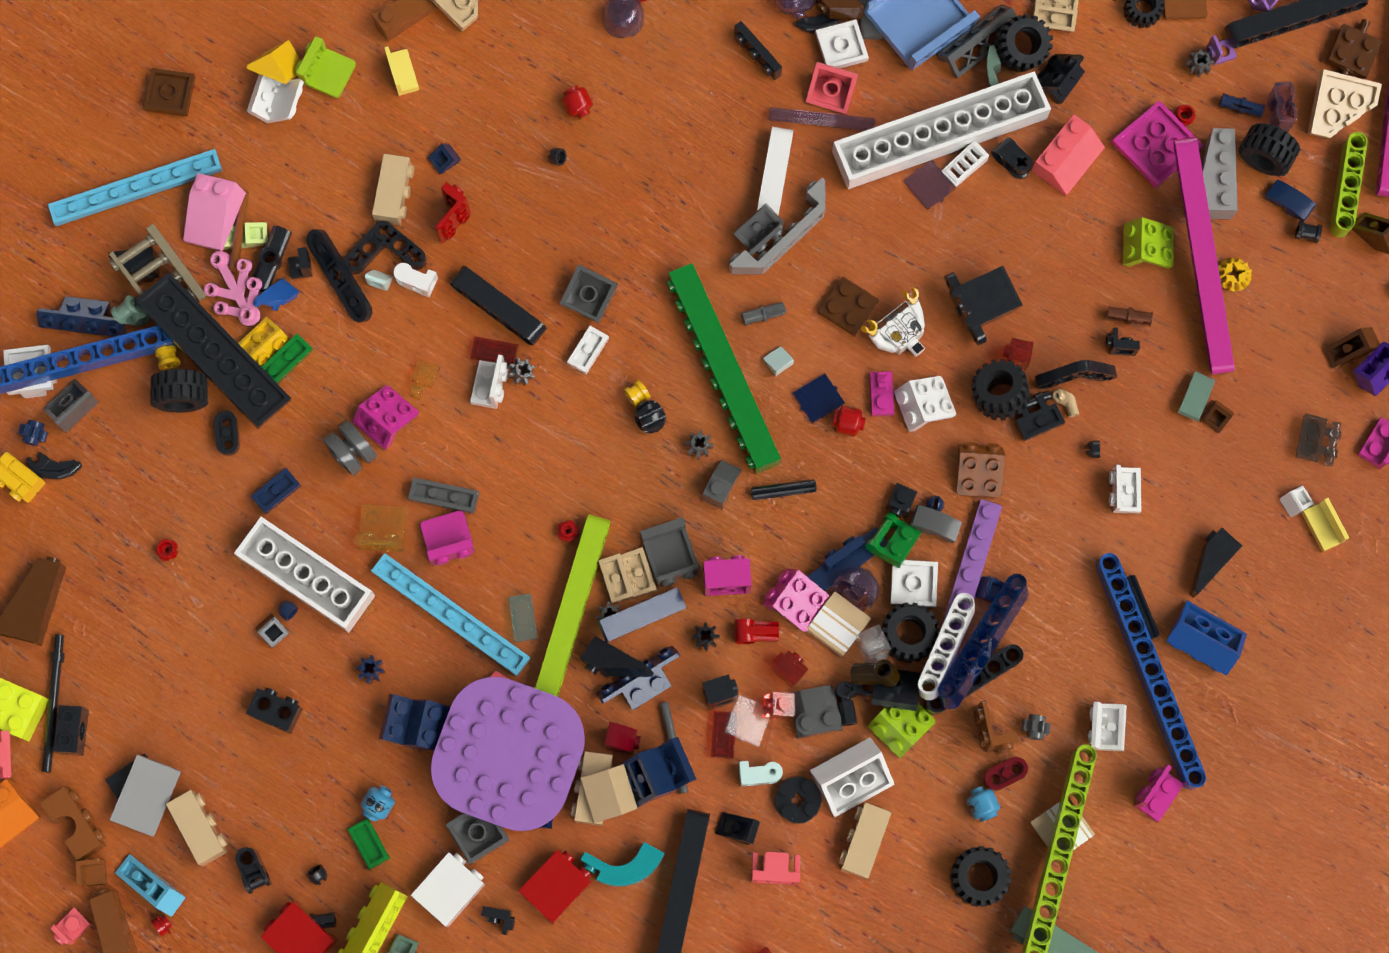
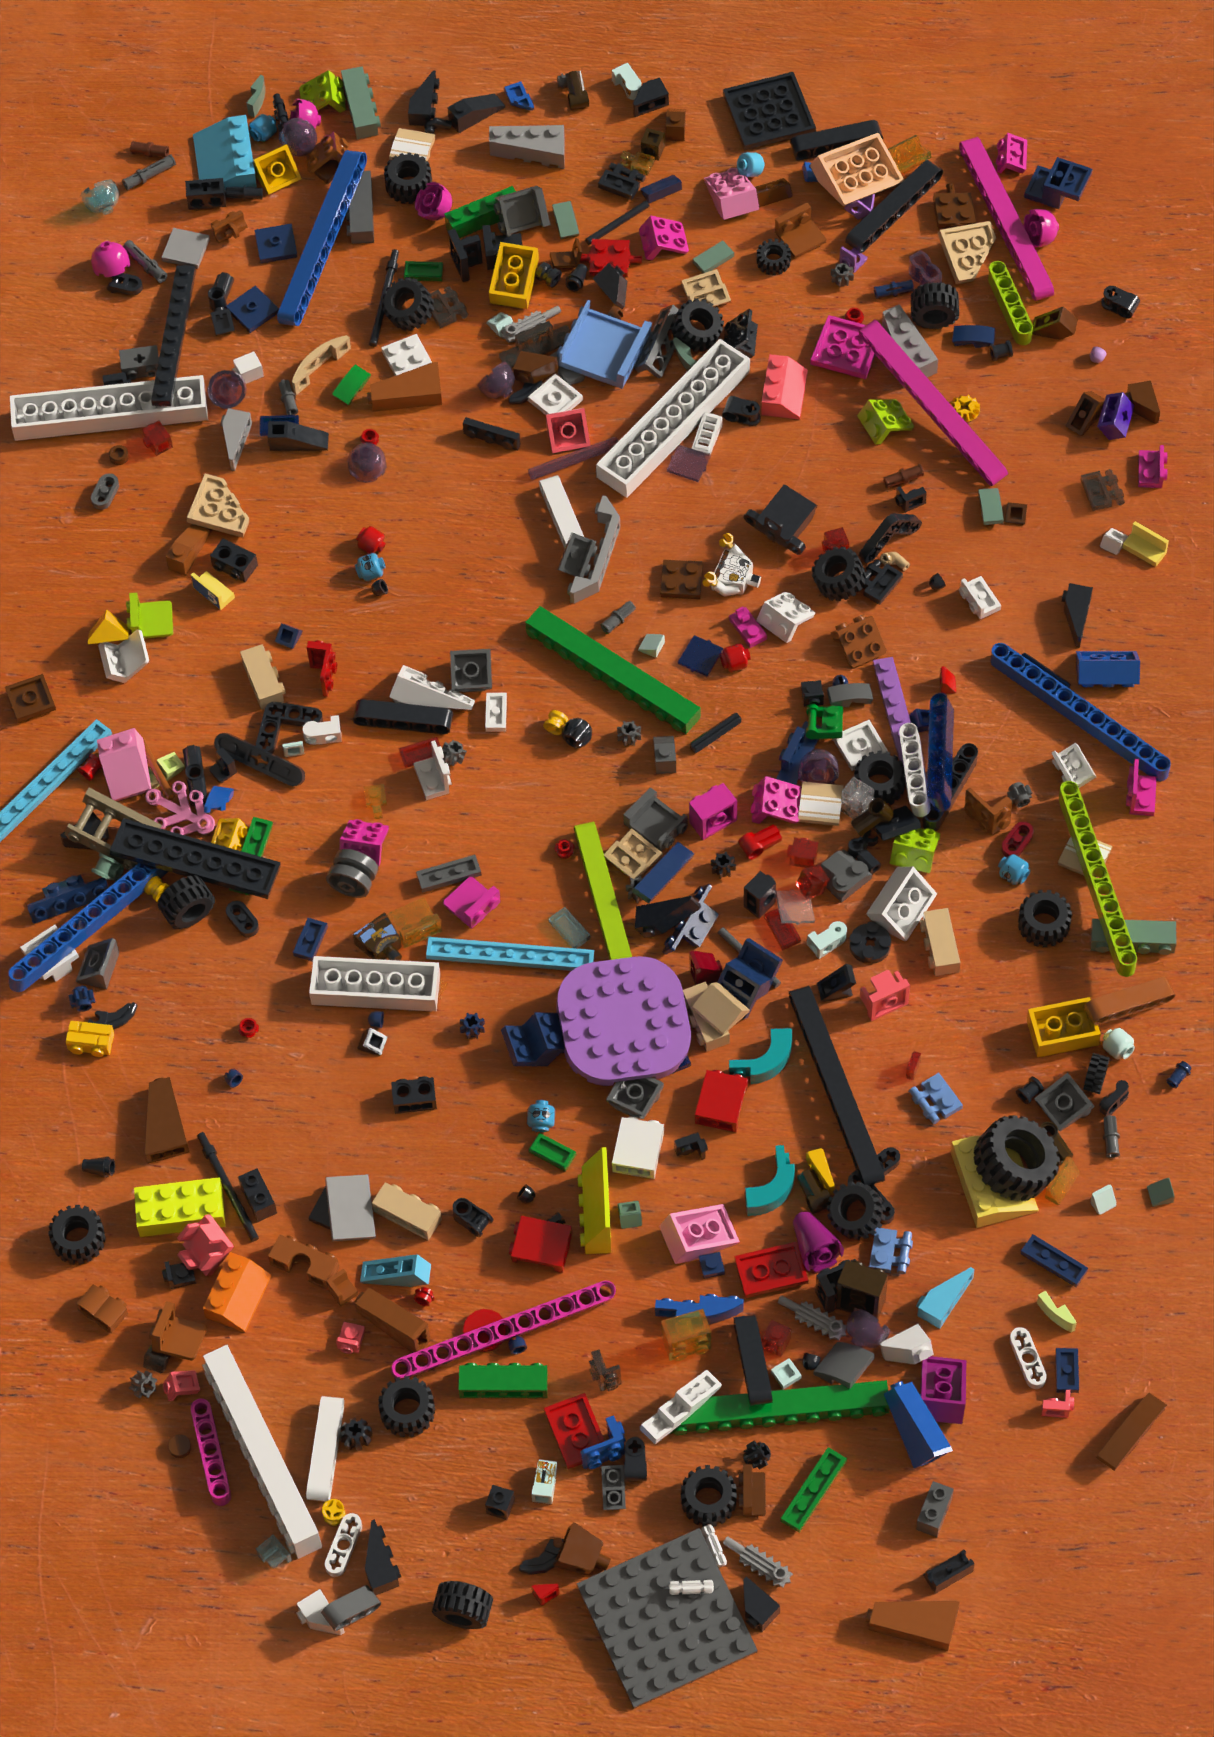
camera: 25 degrees left, 15 degrees down
(122, 594) = (233, 1078): none -> dark blue hinge
(180, 195) = (90, 767): none -> red bush
(338, 529) = (379, 939): none -> torso
(440, 50) = (235, 557): none -> black brick
(528, 286) = (415, 689): none -> white wedge
(559, 129) = (370, 567): none -> dark azure head
(1040, 562) = (947, 681): none -> red slope

